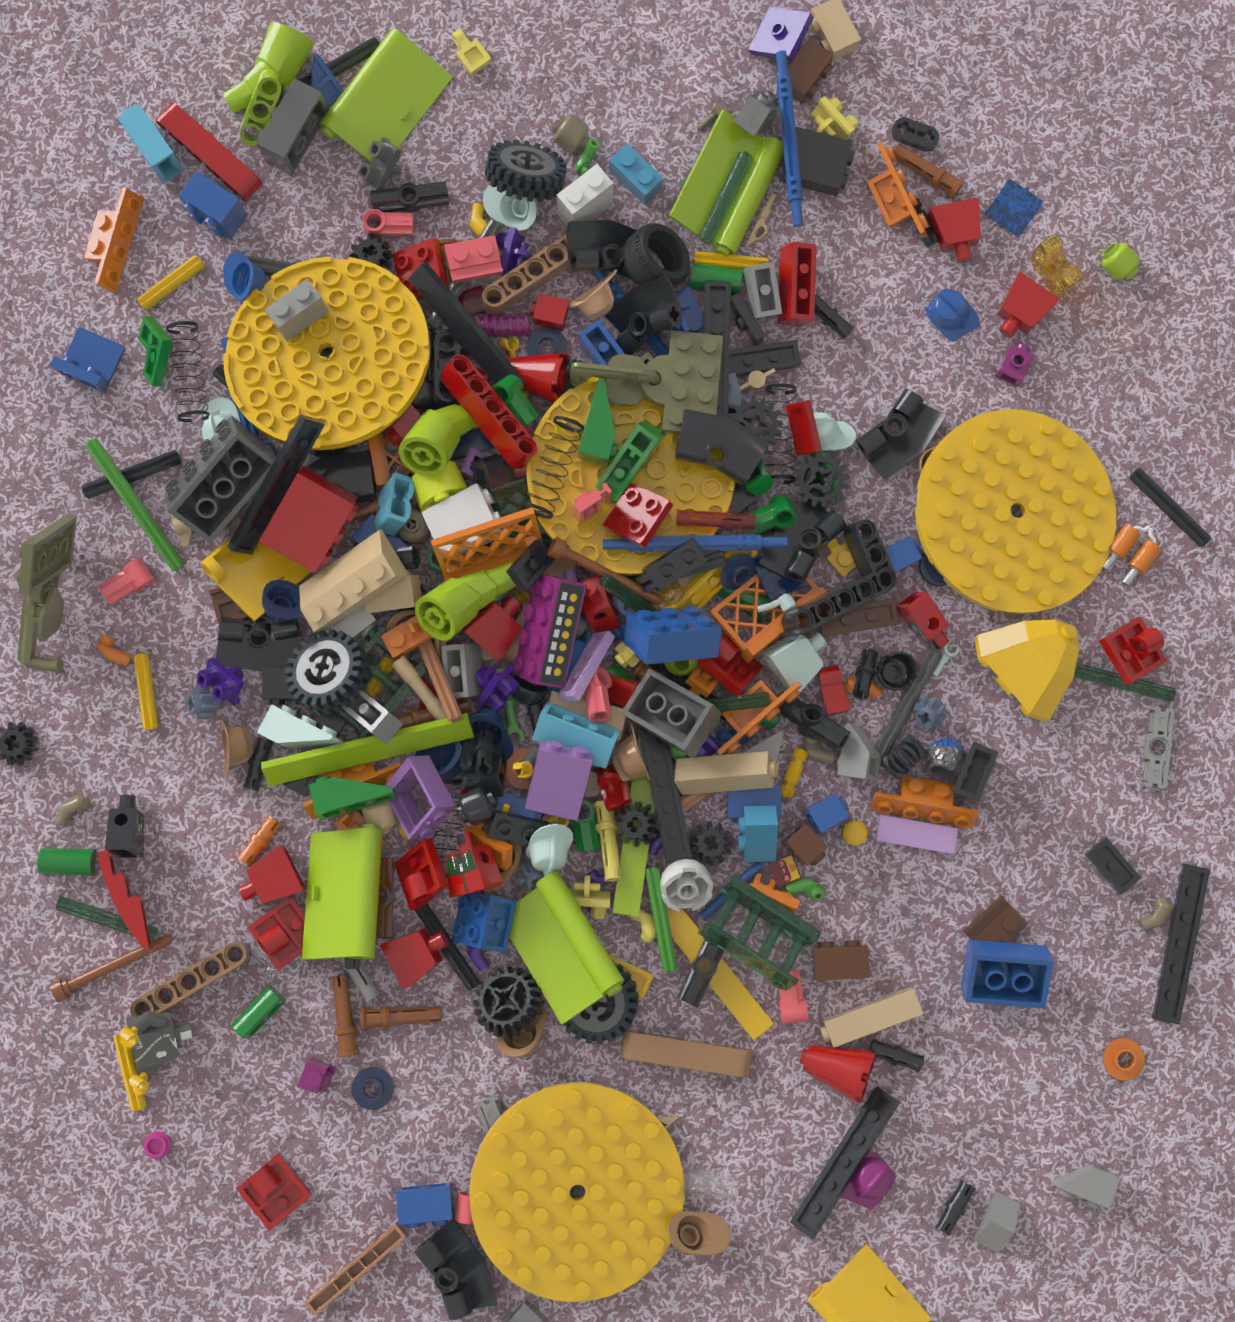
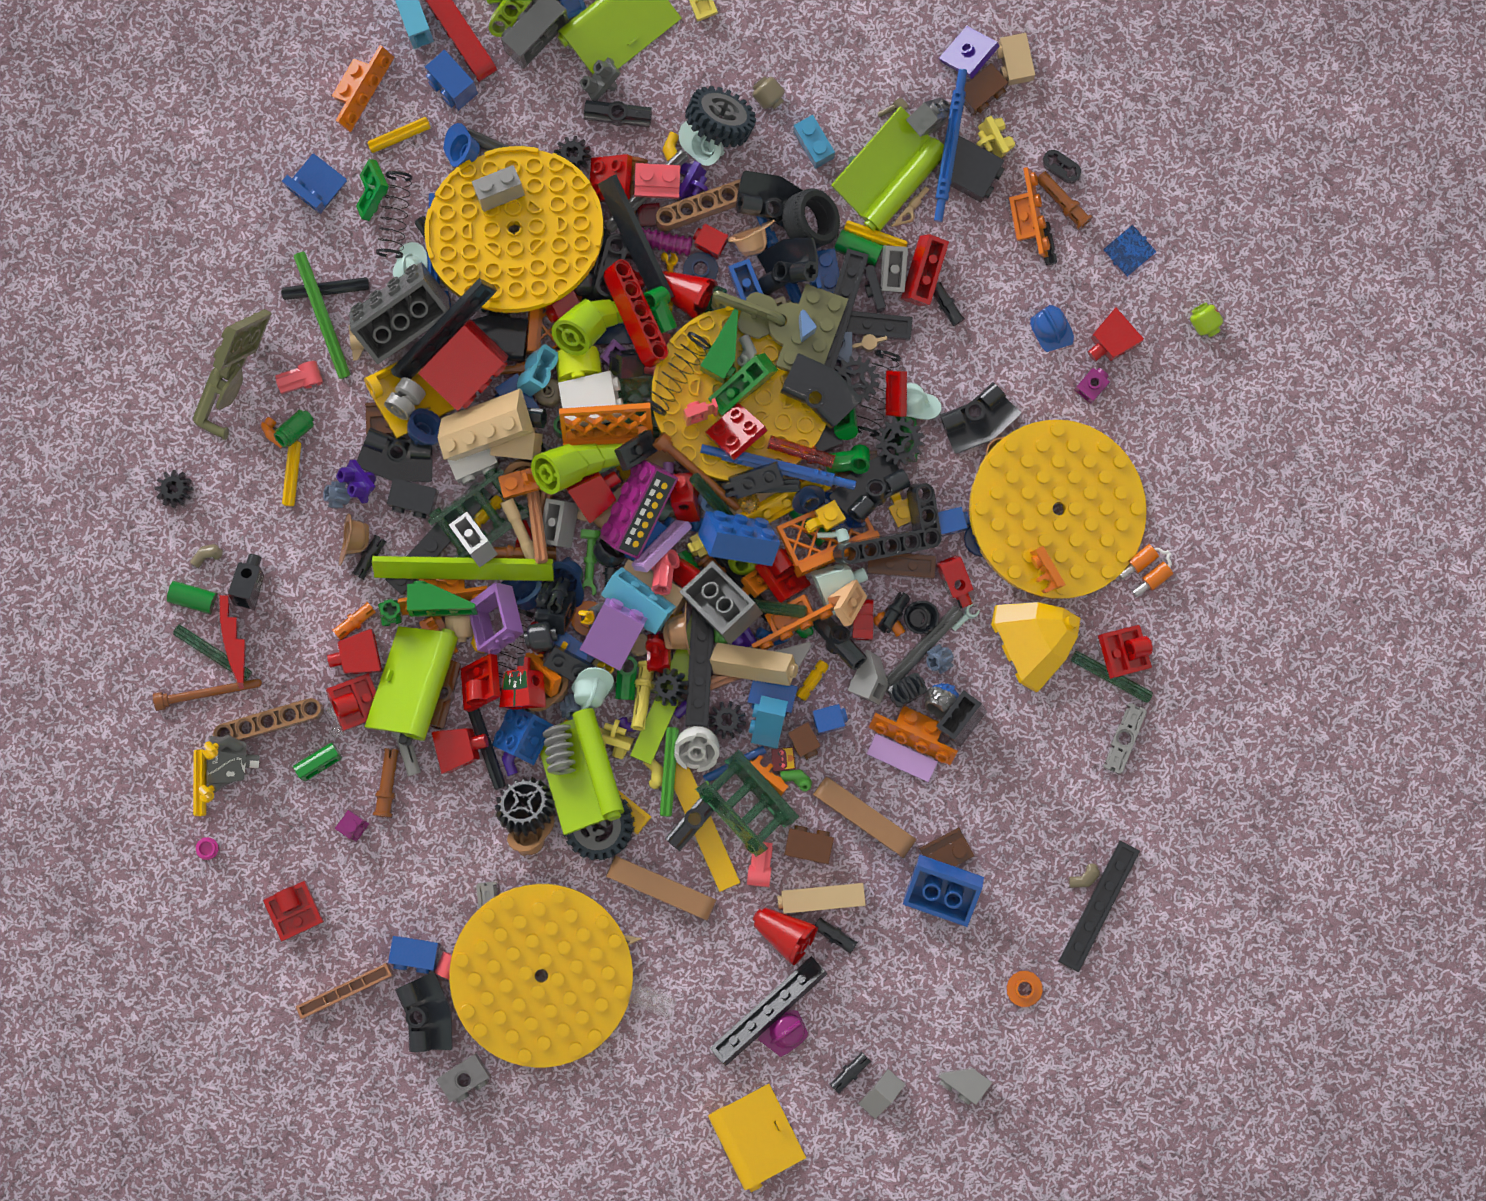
camera: 20 degrees right, 0 degrees up
(135, 640) = (294, 428): none -> green head
(253, 570) = (403, 400): none -> light grey wheel
(292, 732) = (406, 539): light aqua slope -> none
(297, 821) = (390, 612): none -> green piece
(338, 679) = (454, 504): wheel -> none
(360, 1095) = (383, 849): dark blue piece -> none
(389, 1017) = (421, 793): dark orange pin -> none
(391, 223) = (596, 132): coral piece -> none
(493, 684) = (582, 543): dark purple hips -> none
(530, 928) = (557, 749): none -> light grey piece
(585, 196) = (764, 152): white brick -> none
(587, 156) = (775, 117): bright green arm -> none
(627, 422) = (748, 350): none -> light grey arm
(685, 375) = (806, 326): none -> medium blue slope
(699, 1233) = (631, 1035): medium nougat piece -> none
(725, 197) = (884, 181): clear green axle -> none
(763, 585) = (827, 516): none -> yellow plate
(813, 675) = (848, 602): none -> light nougat slope
(816, 752) = (836, 668): dark tan arm -> none
(854, 833) = (850, 743): yellow tile -> none
(893, 912) = (864, 817): none -> medium nougat beam
(957, 226) = (1075, 255): red torso -> none
(1020, 573) = (1042, 561): none -> orange plate
(1051, 264) = (1148, 310): clear yellow piece -> none
(1112, 866) = (1058, 826): black plate -> none
(1170, 507) = (1191, 539): black axle -> none

